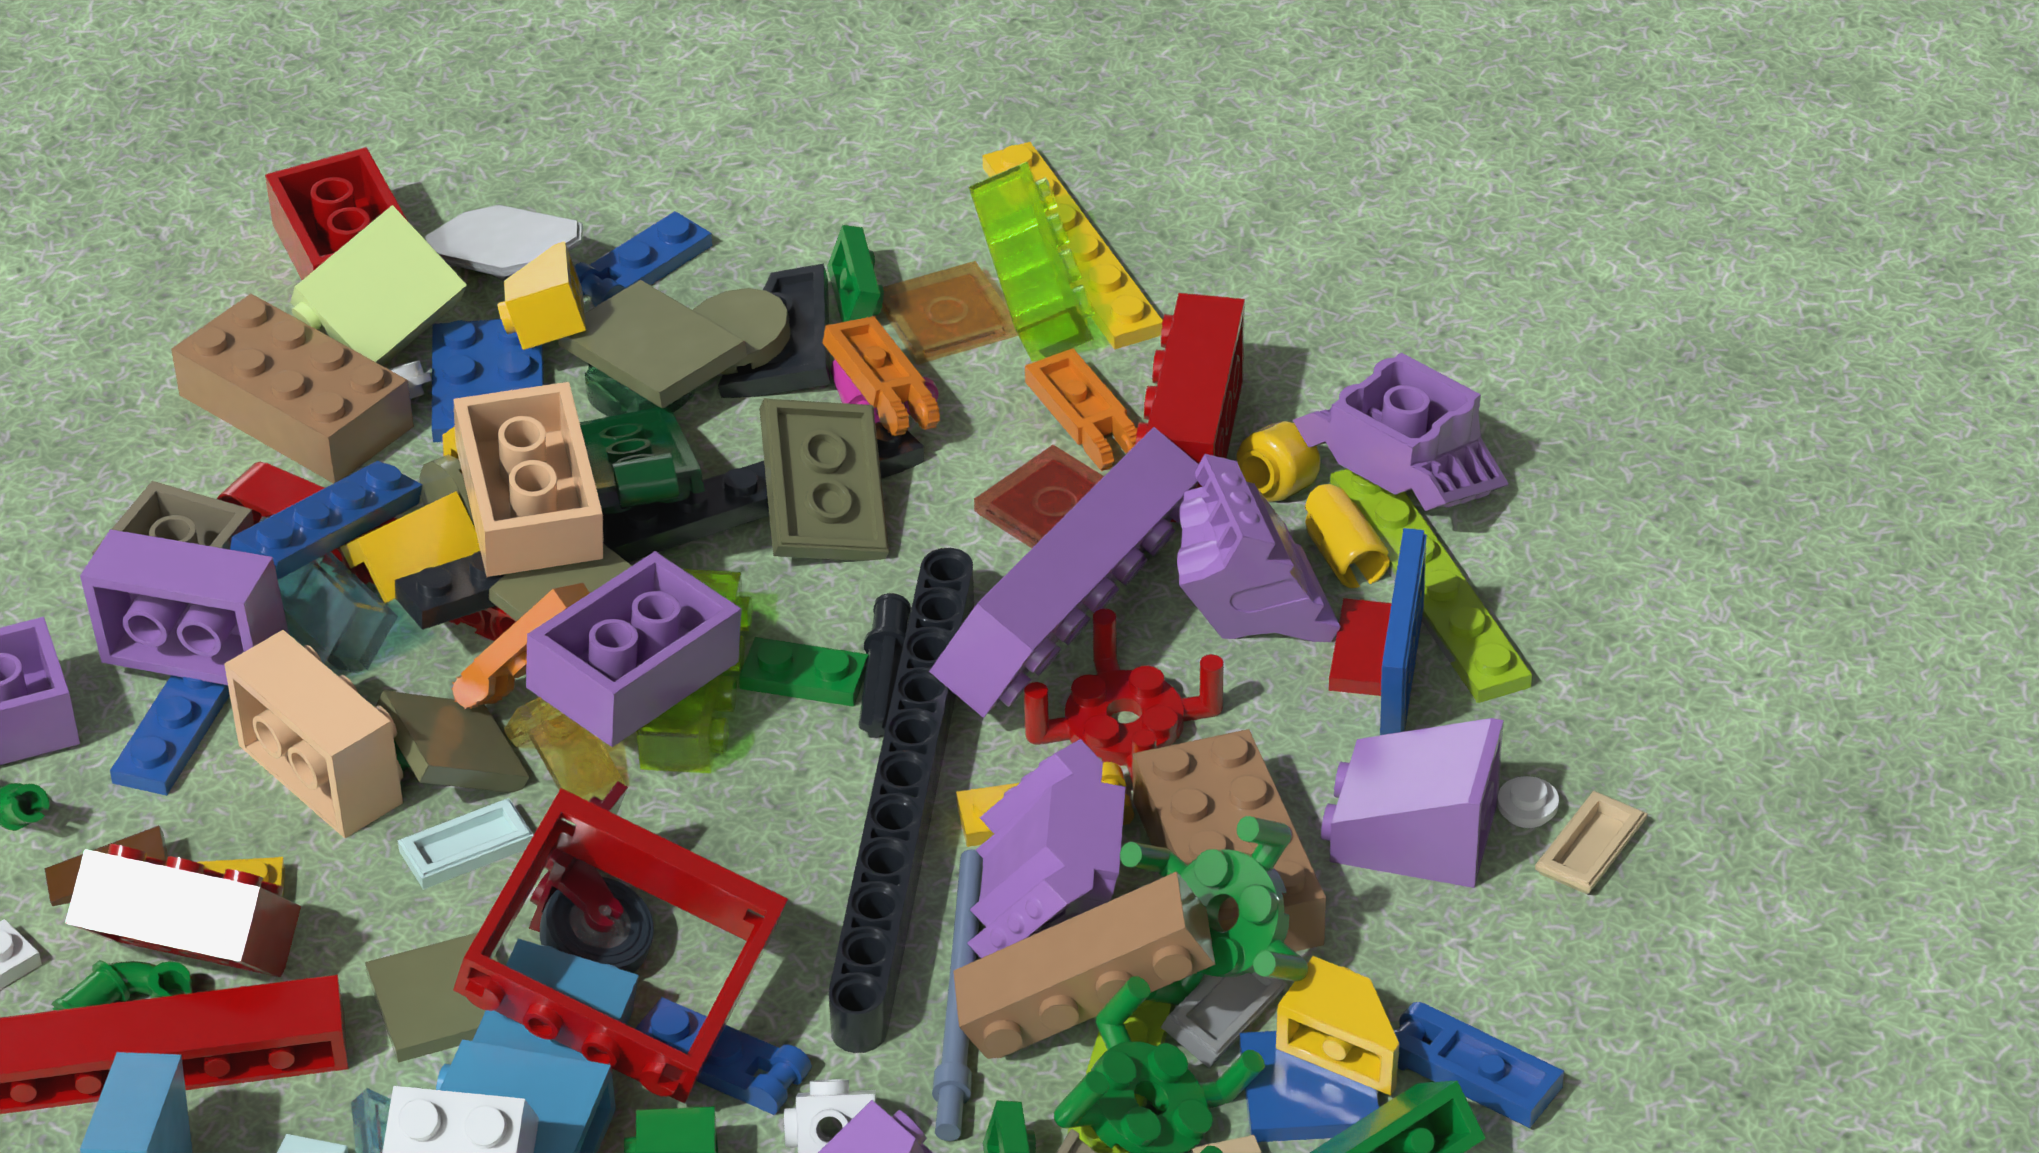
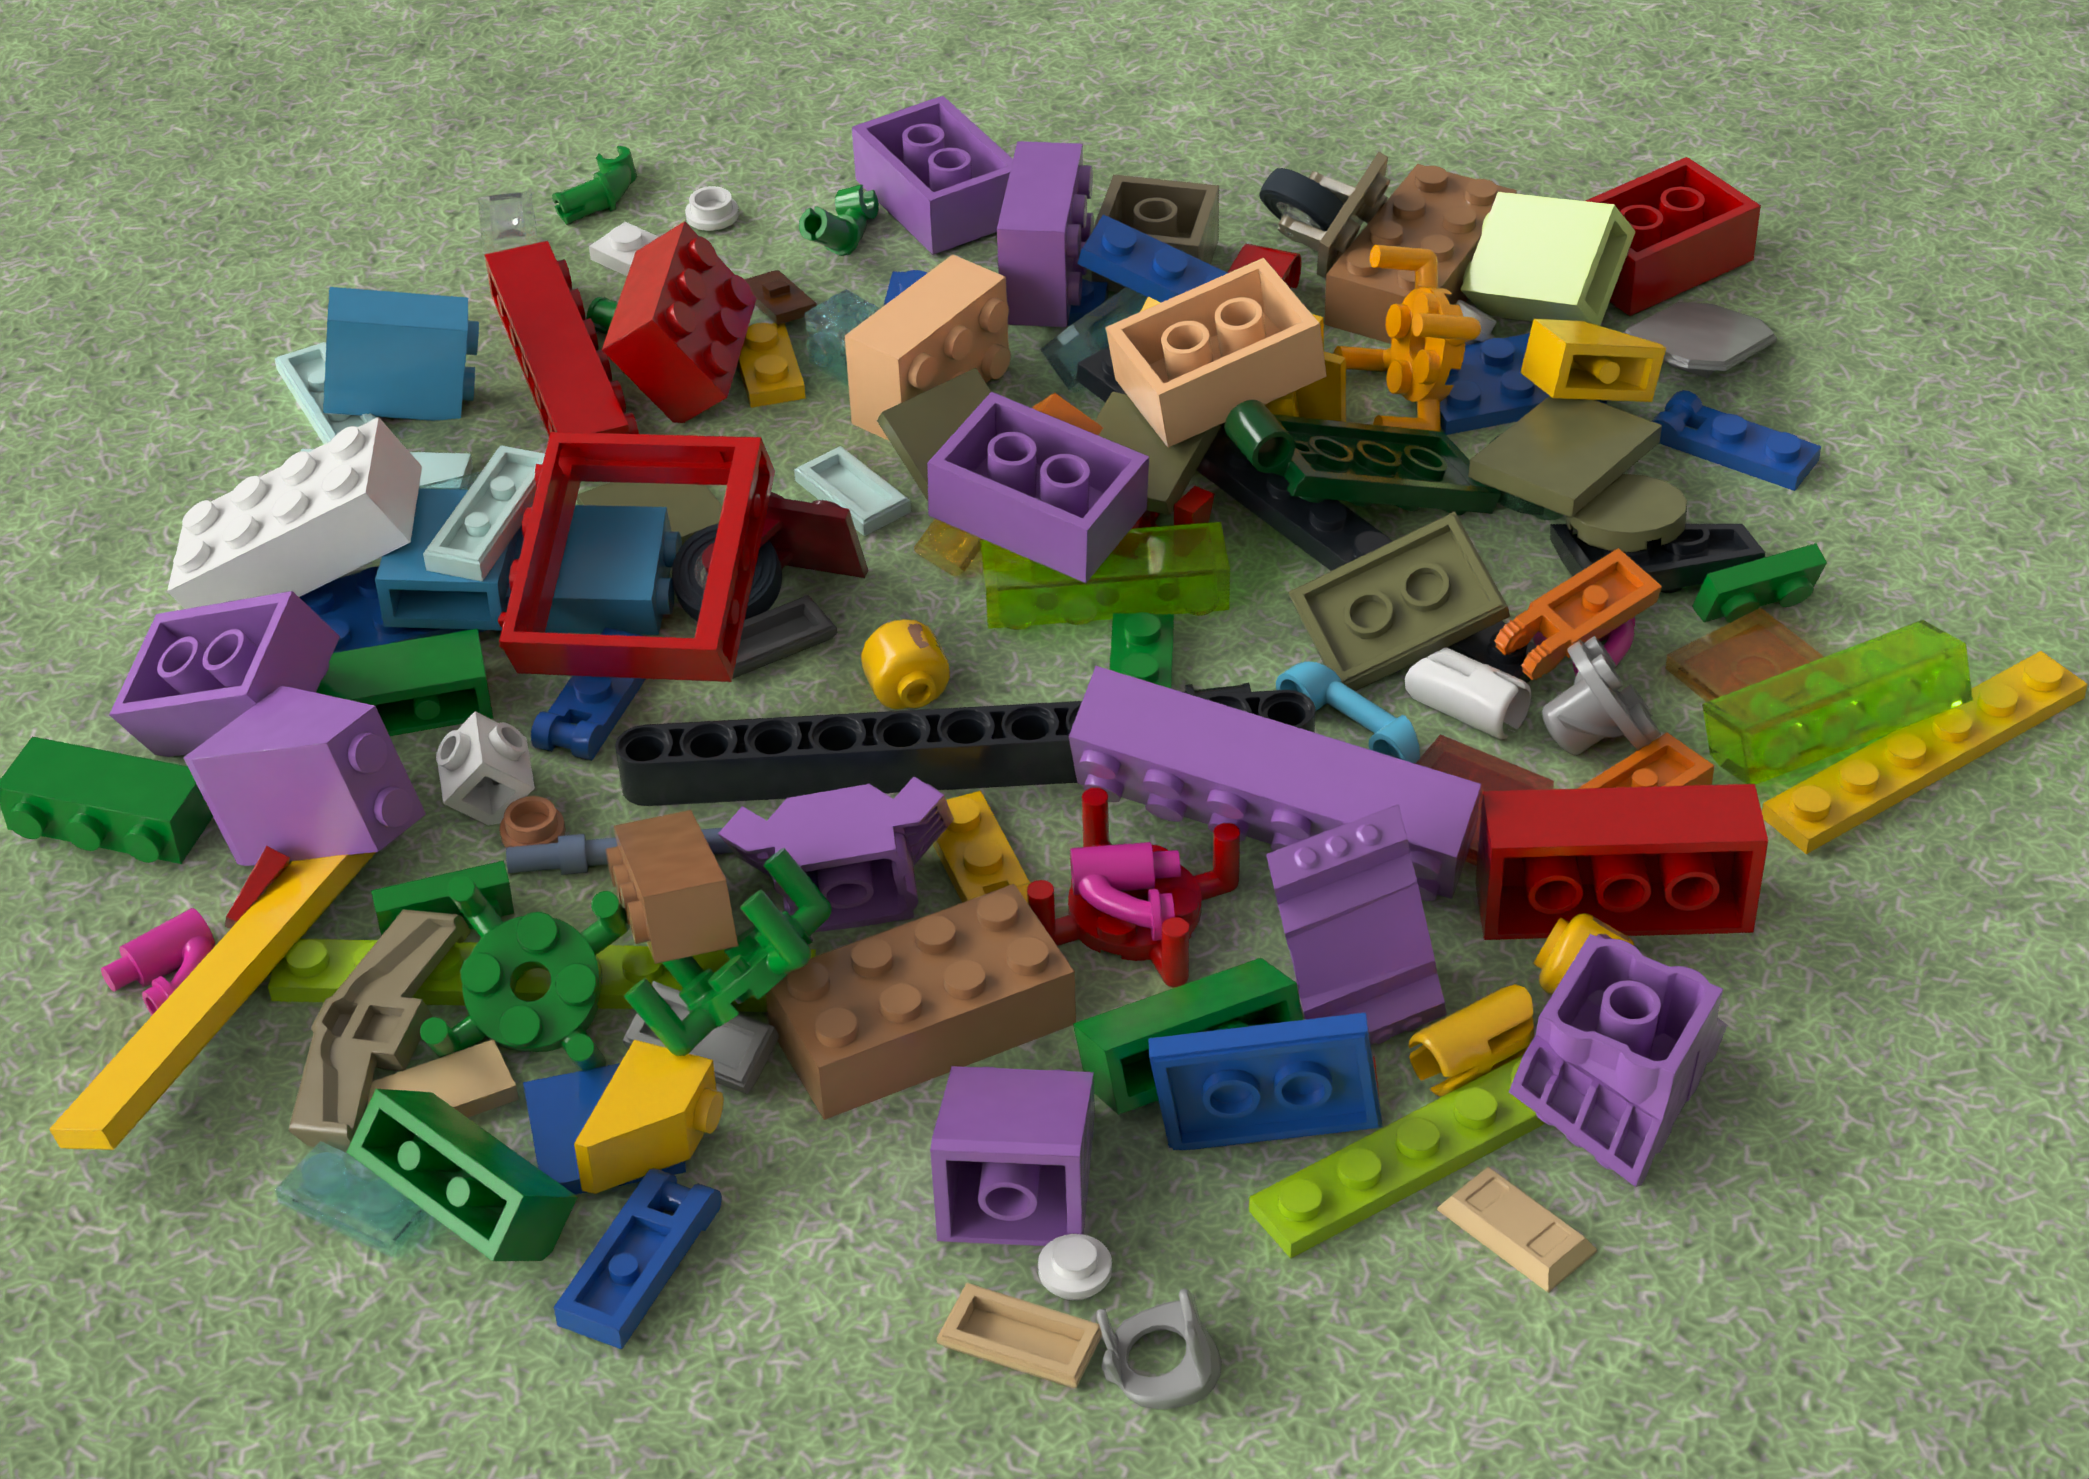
camera: 80 degrees right, 0 degrees up
(231, 807) = (827, 330): none -> clear light blue brick
(238, 414) = (1324, 210): none -> plate
(452, 364) = (1424, 343): none -> light orange plate
(503, 1057) = (486, 516): none -> light aqua tile
(680, 937) = (782, 634): none -> dark grey tile
(772, 819) = (905, 660): none -> yellow head
(913, 1101) = (531, 822): none -> nougat plate
(930, 468) = (1469, 691): none -> white arm
(970, 521) = (1325, 687): none -> medium azure bar
(987, 389) = (1597, 705): none -> light grey plate
(1116, 692) = (1106, 870): none -> dark pink plant
(1306, 687) = (1118, 1042): none -> green brick
(1525, 559) = (1517, 1229): none -> tan tile
(1621, 729) = (1183, 1385): none -> light grey piece

